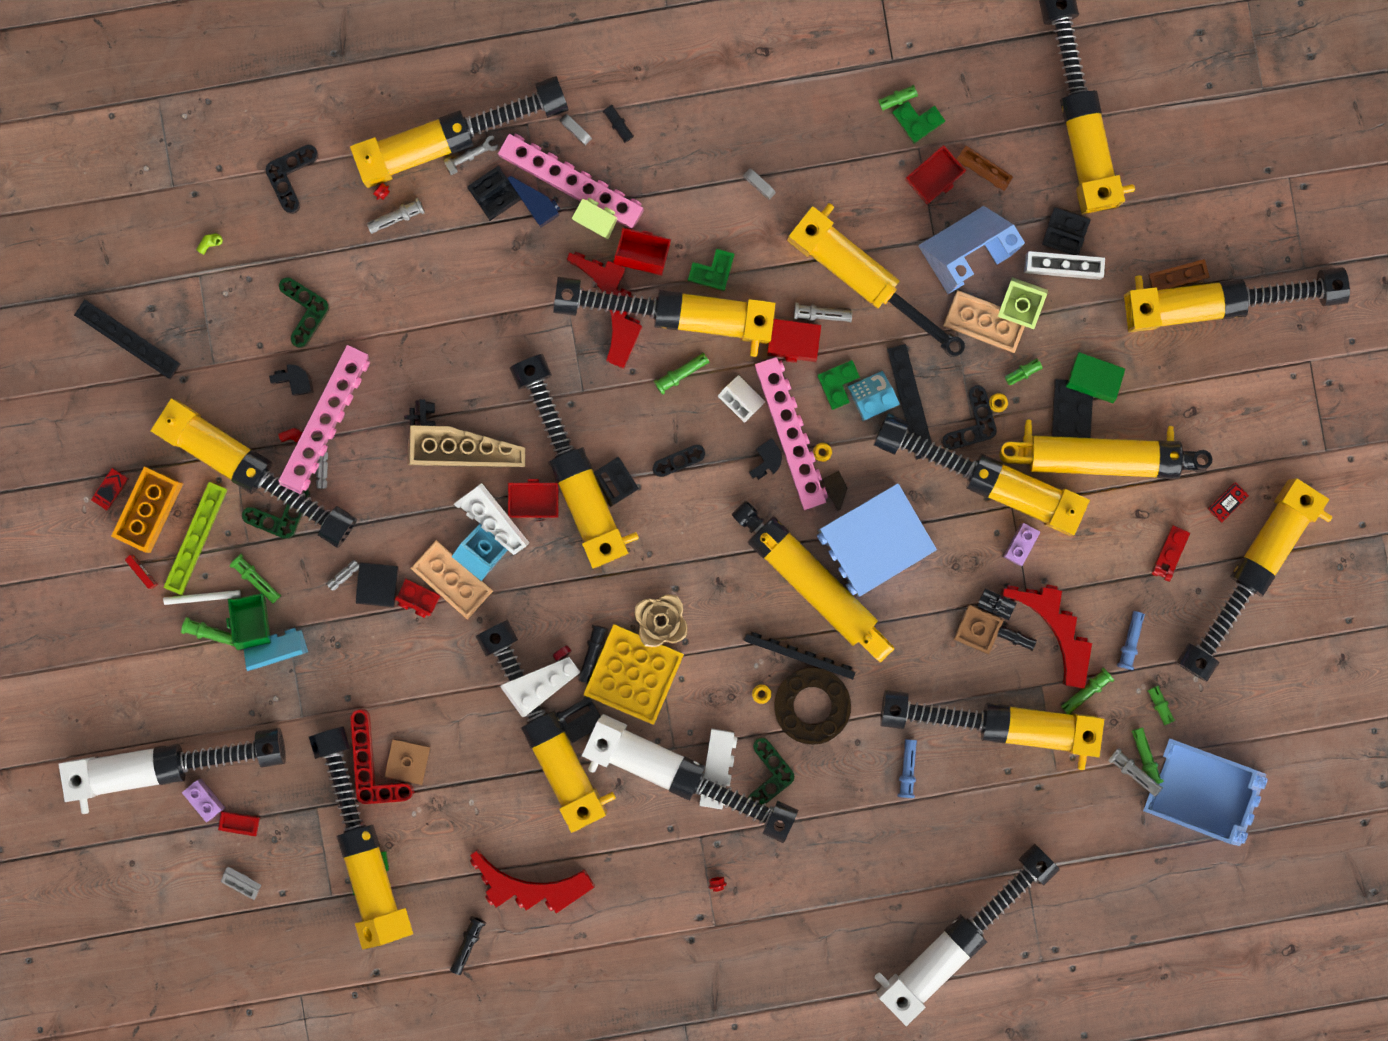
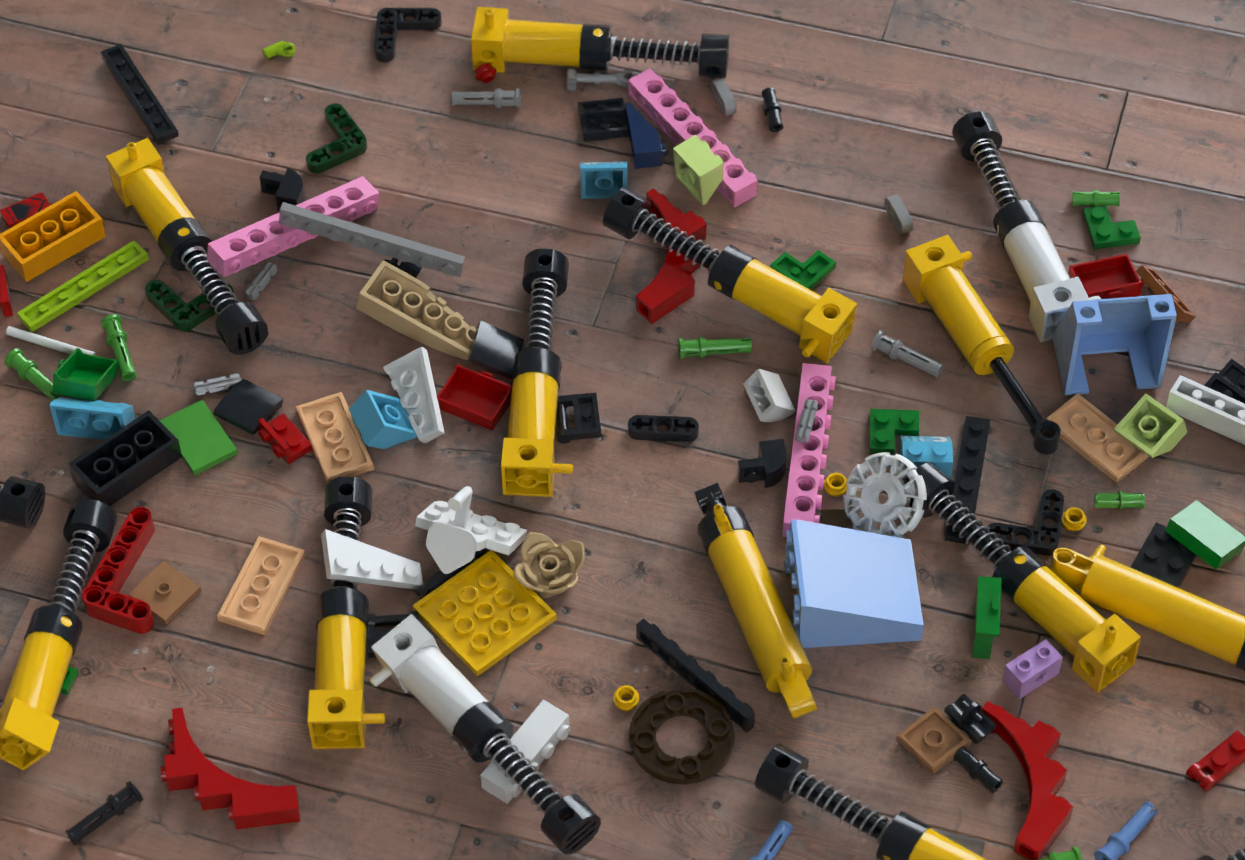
camera: 25 degrees right, 35 degrees down
(320, 676) = (125, 459): none -> black brick
(356, 626) = (200, 437): none -> bright green tile
(400, 410) = (371, 239): none -> light grey plate
(469, 723) = (261, 585): none -> light nougat tile
(525, 255) = (602, 179): none -> medium azure slope
(528, 454) = (495, 349): none -> black slope
(562, 653) = (416, 553): dark red tile -> none
(591, 619) = (458, 532): none -> white plate
(642, 251) = (734, 219): red container -> none
(776, 778) = (593, 796): dark green beam -> none
(782, 417) = (806, 421): none -> light grey axle
(794, 341) = (861, 367): red container -> none
(862, 166) = (1020, 229): none -> piece
(868, 448) = (897, 491): none -> white plate
(975, 521) = (986, 616): none -> green container

